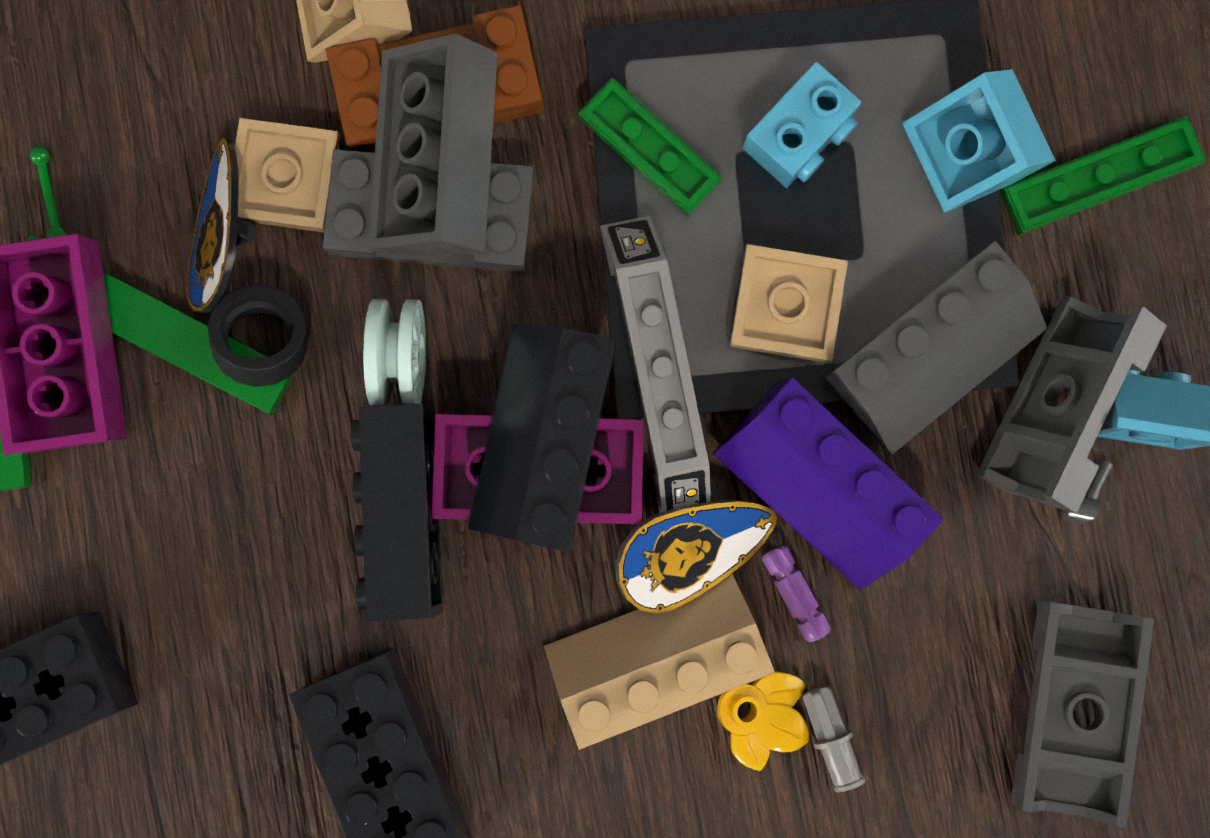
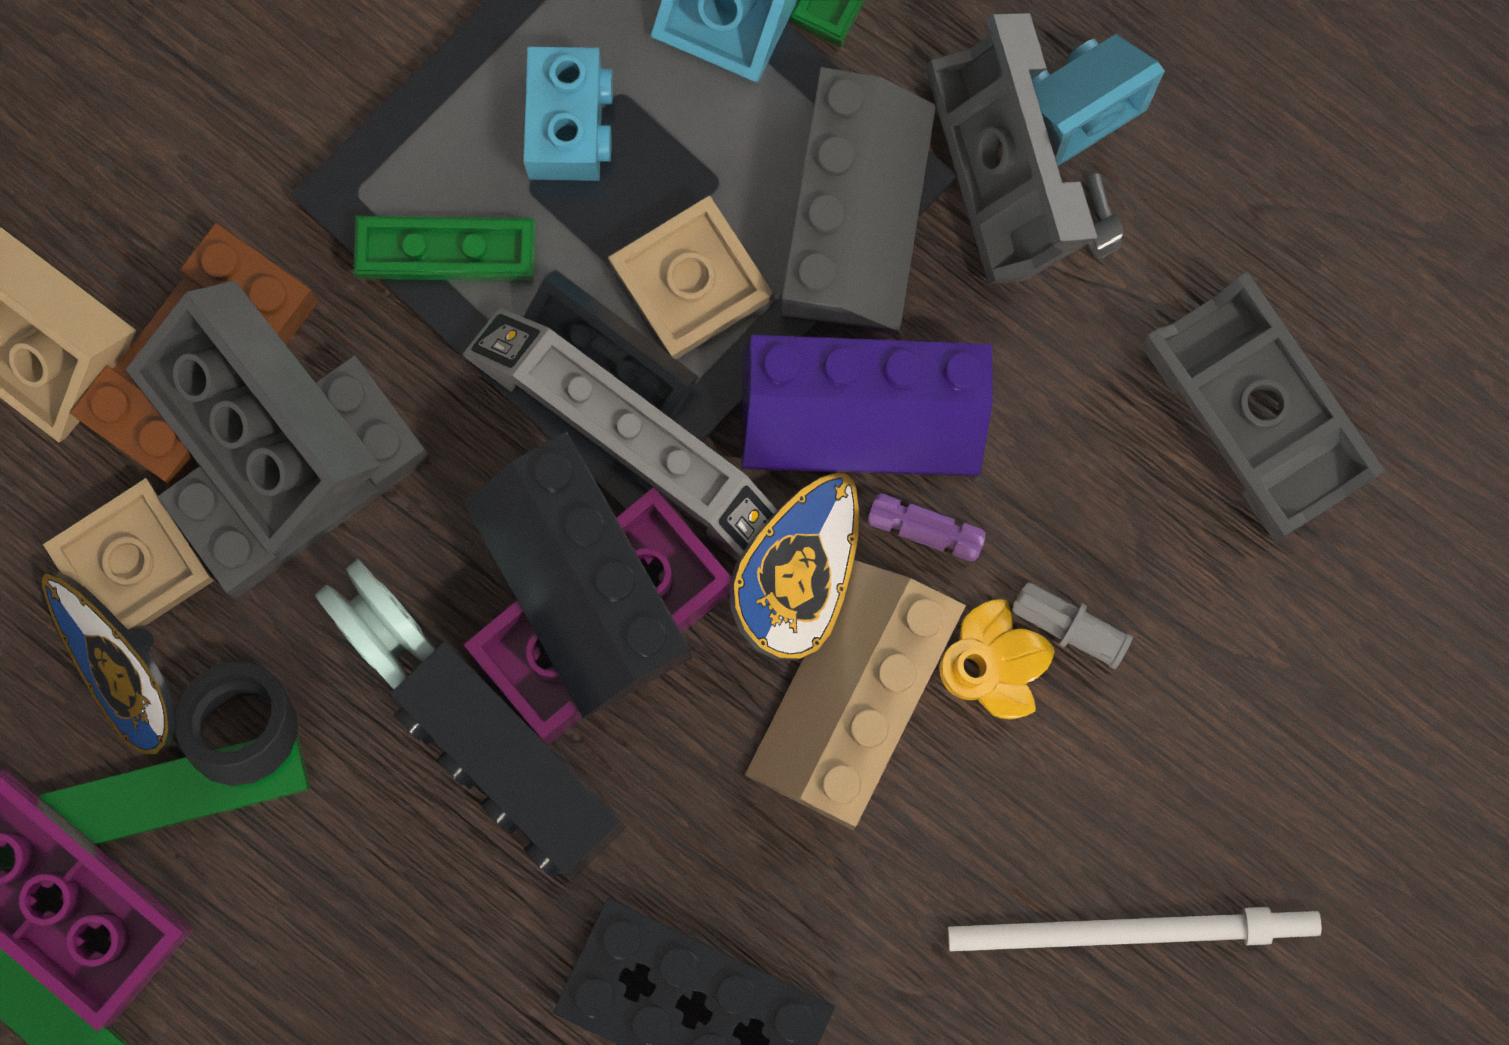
camera: 45 degrees left, 5 degrees down
(698, 302) = (611, 343): none -> black plate

